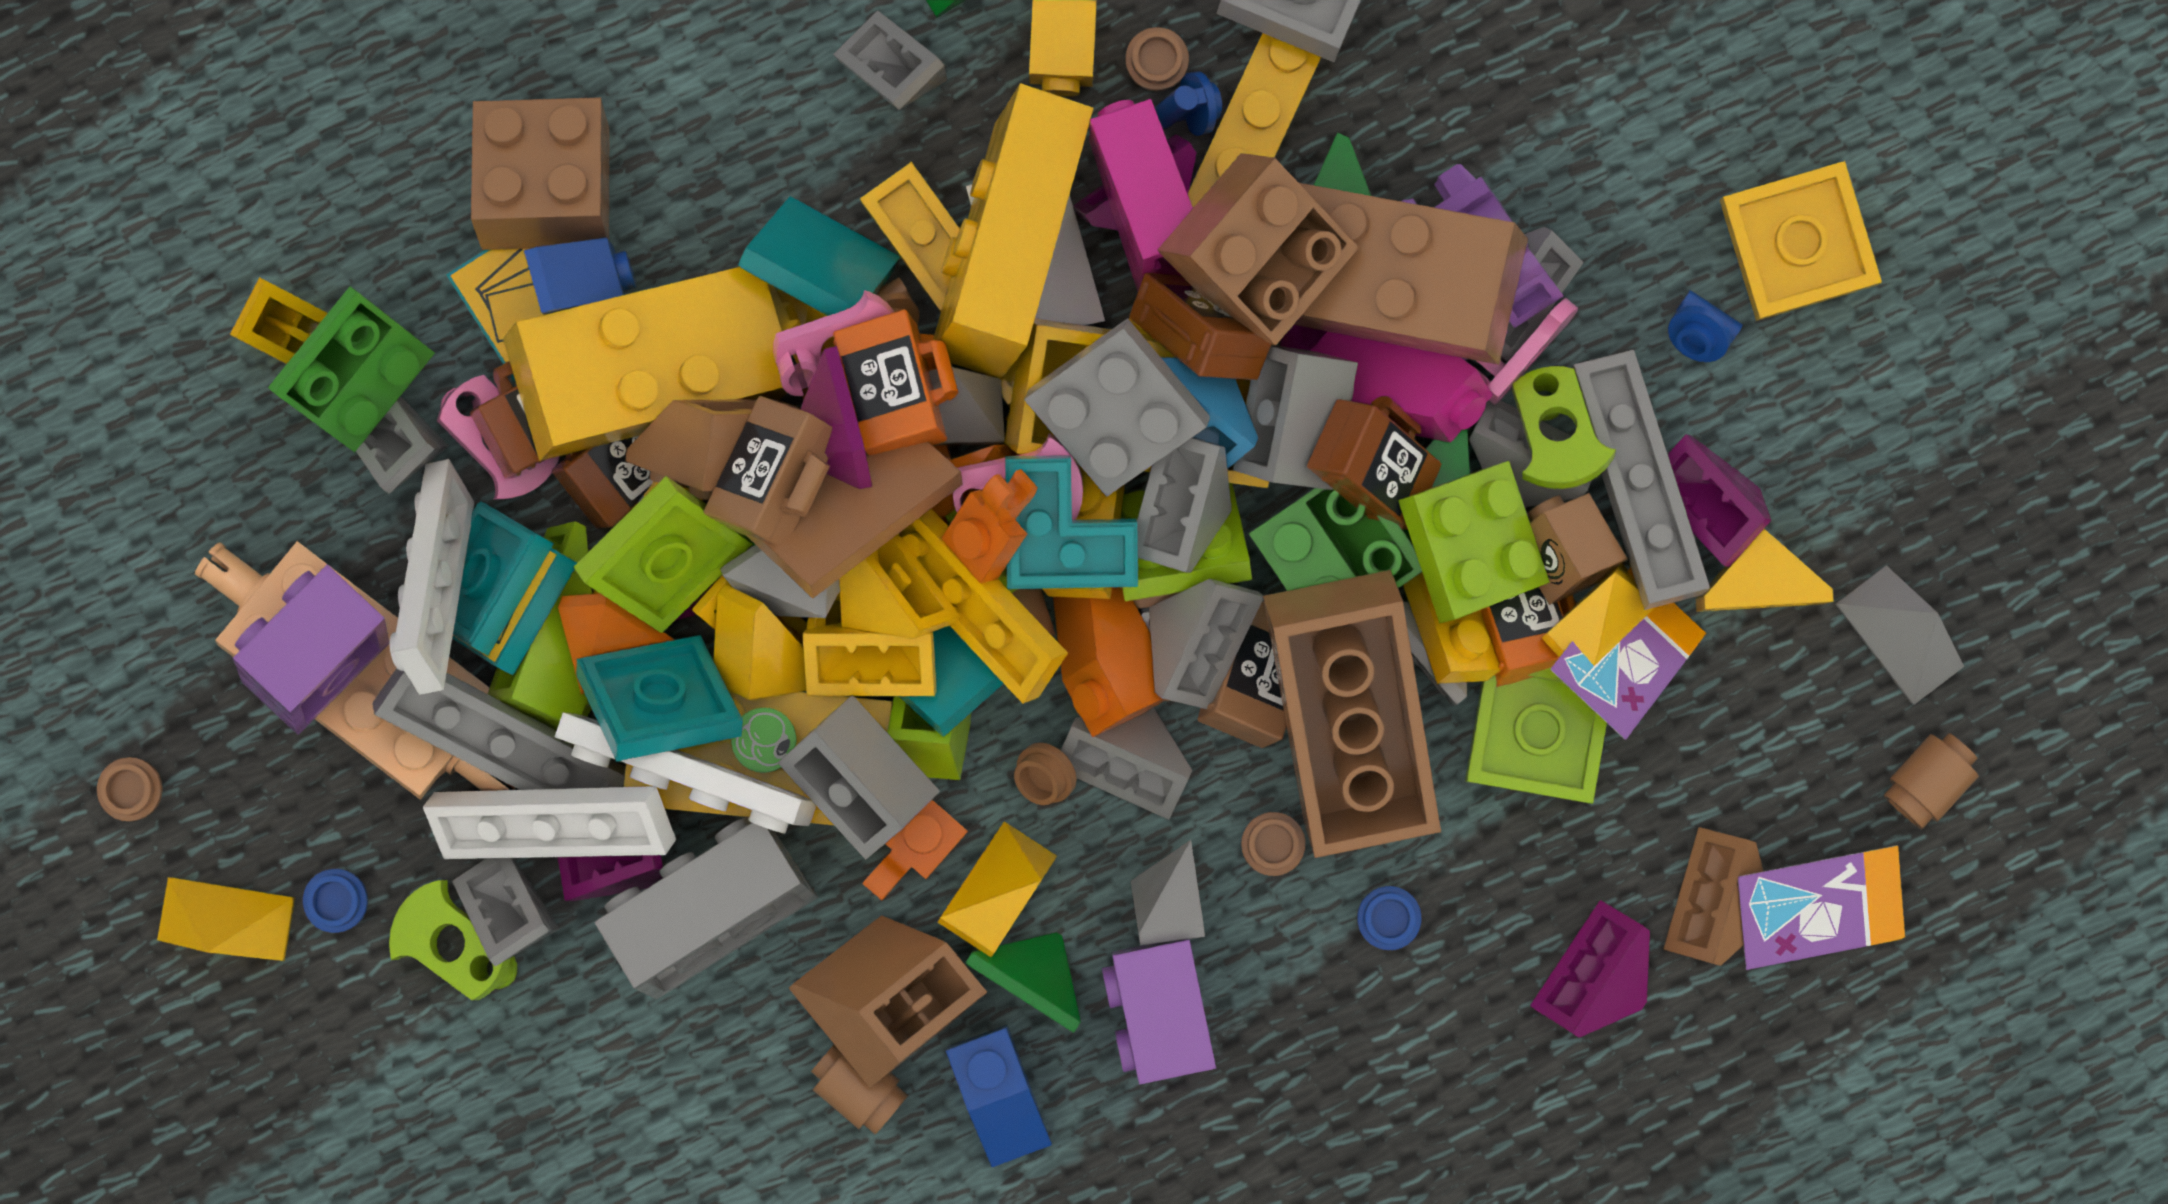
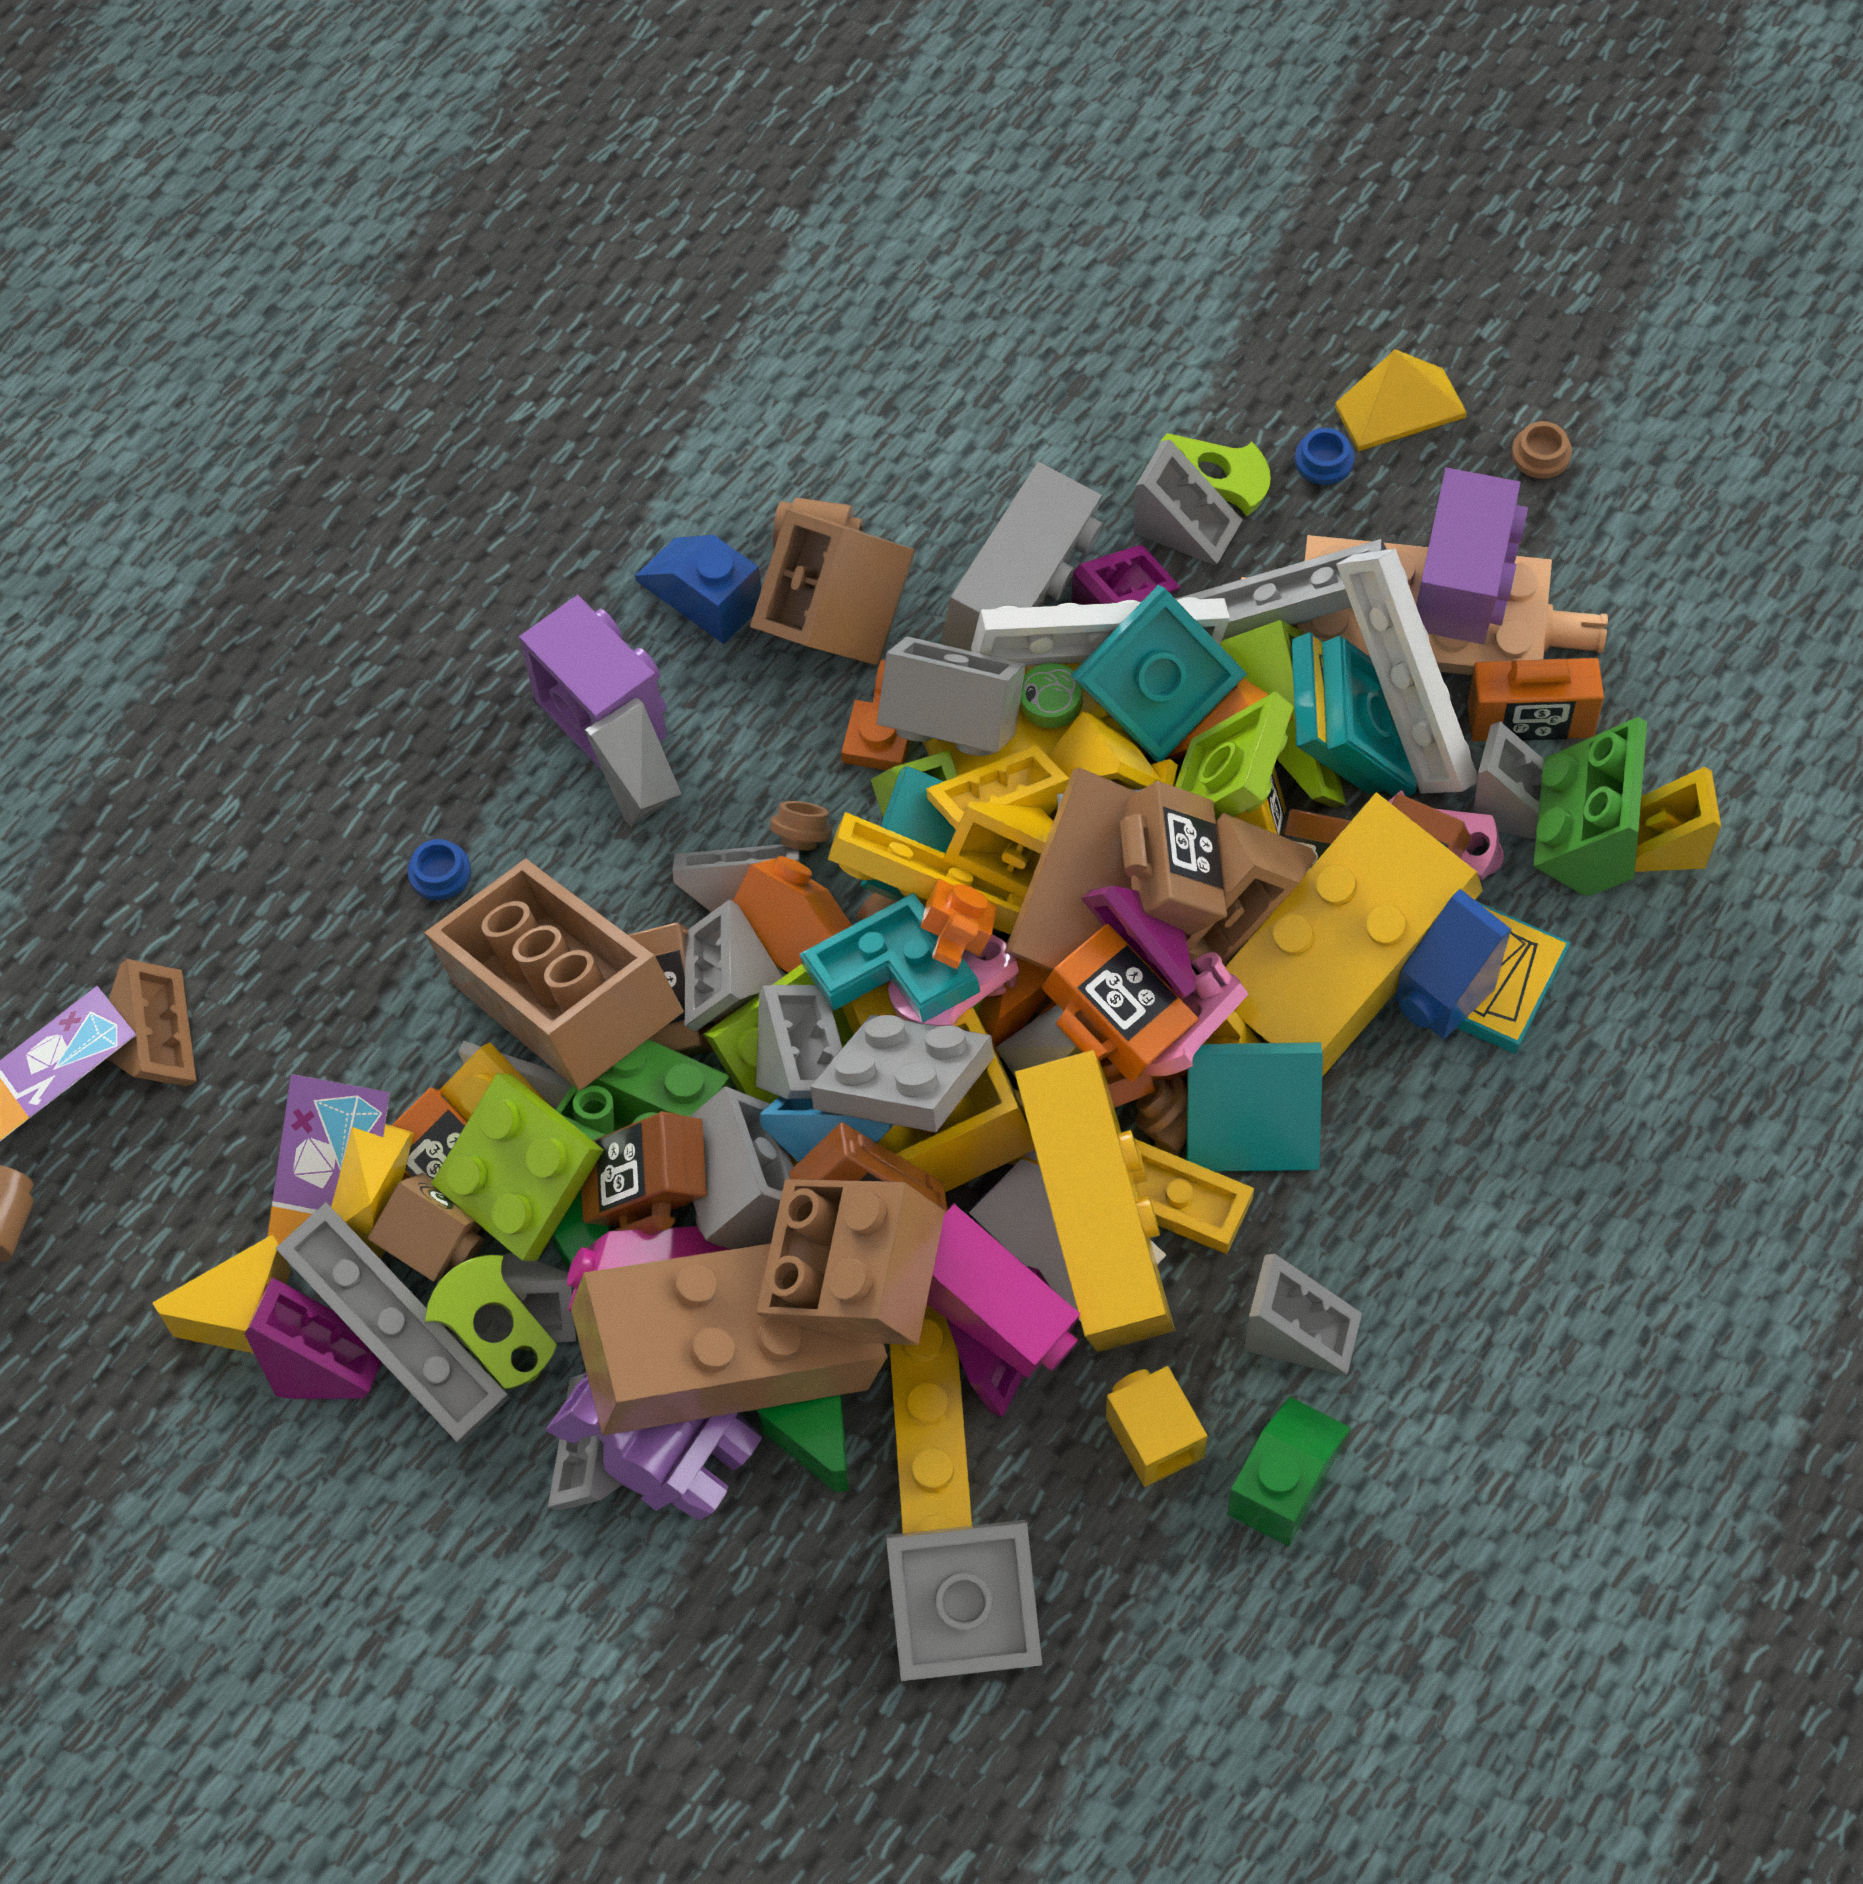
camera: 155 degrees right, 25 degrees down
(319, 520) = (1536, 698): none -> orange piece
(539, 172) = (1547, 1050): medium nougat piece -> none
(550, 823) = (1193, 561): white plate -> none
(997, 889) = (787, 719): yellow slope -> none
(1035, 973) = (722, 673): green slope -> none
(1157, 59) = (1059, 1468): medium nougat plate -> none
(1194, 101) = (995, 1444): blue plate -> none
(1273, 843) = (576, 870): medium nougat plate -> none
(1536, 739) = (382, 1052): lime plate -> none
(1547, 331) = (554, 1383): bright pink piece -> none
(1599, 974) = (231, 914): magenta slope -> none
(1702, 329) = (399, 1502): blue plate -> none
(1800, 241) = (341, 1632): yellow plate -> none
(1902, 633) = (80, 1334): light grey slope -> none

